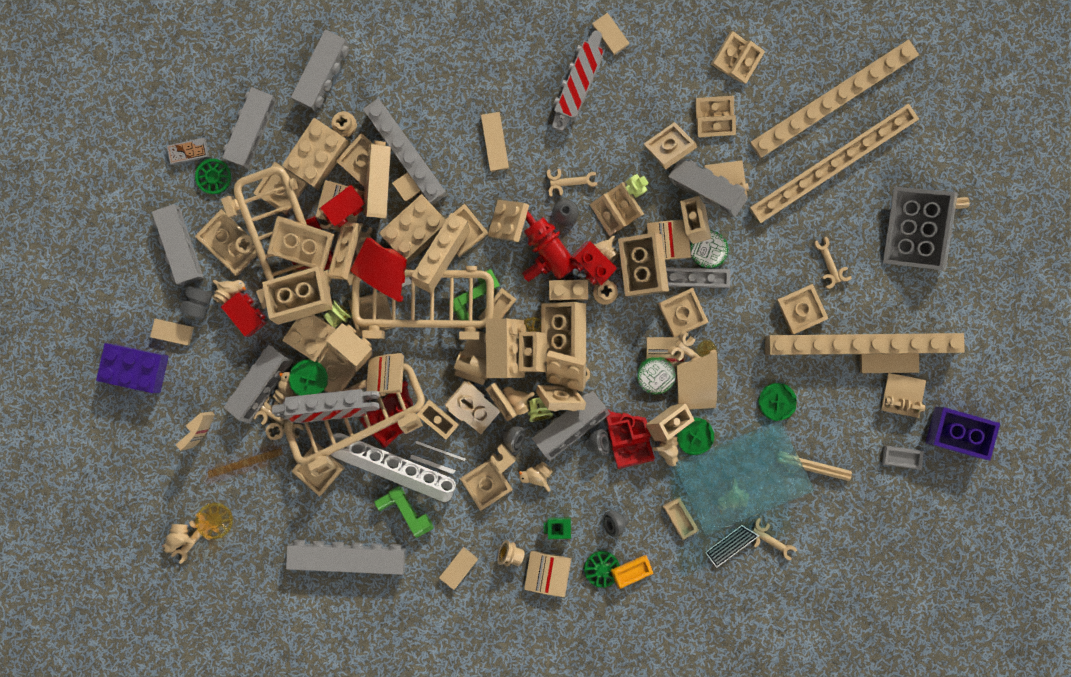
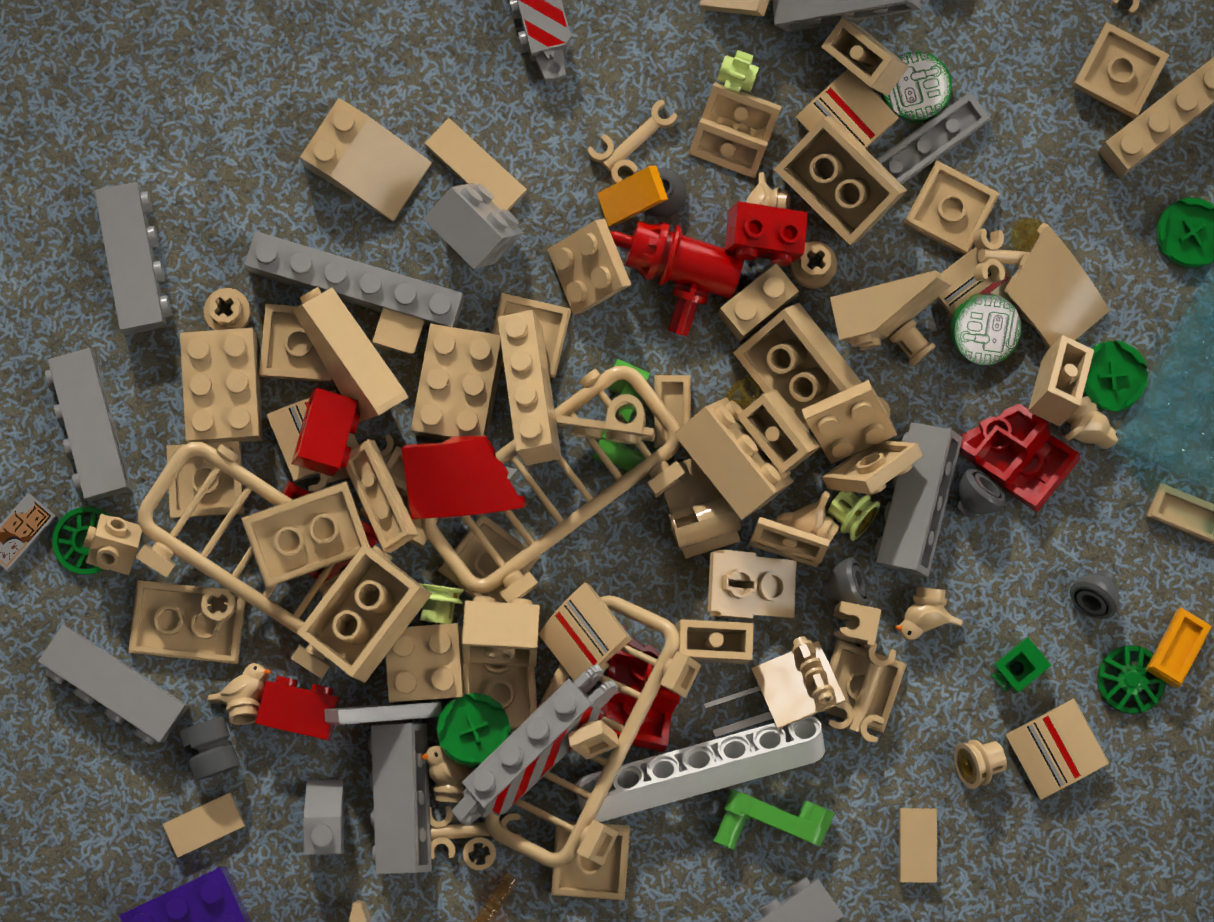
camera: 45 degrees left, 5 degrees down
(219, 185) = (113, 544): none -> tan brick
(221, 367) = (324, 817): none -> light grey slope
(275, 342) = (385, 712): none -> light grey tile
(352, 422) = (593, 739): none -> tan plate
(450, 103) = (365, 160): none -> tan slope
(460, 463) = (798, 683): none -> tan hinge
(461, 296) = (612, 428): none -> tan piece
(472, 165) = (474, 224): none -> light grey brick
(473, 497) = (856, 719): none -> tan bar
(550, 204) = (632, 196): none -> light orange tile
(617, 335) = (883, 309): none -> tan slope
(620, 357) = (912, 342): none -> tan bush

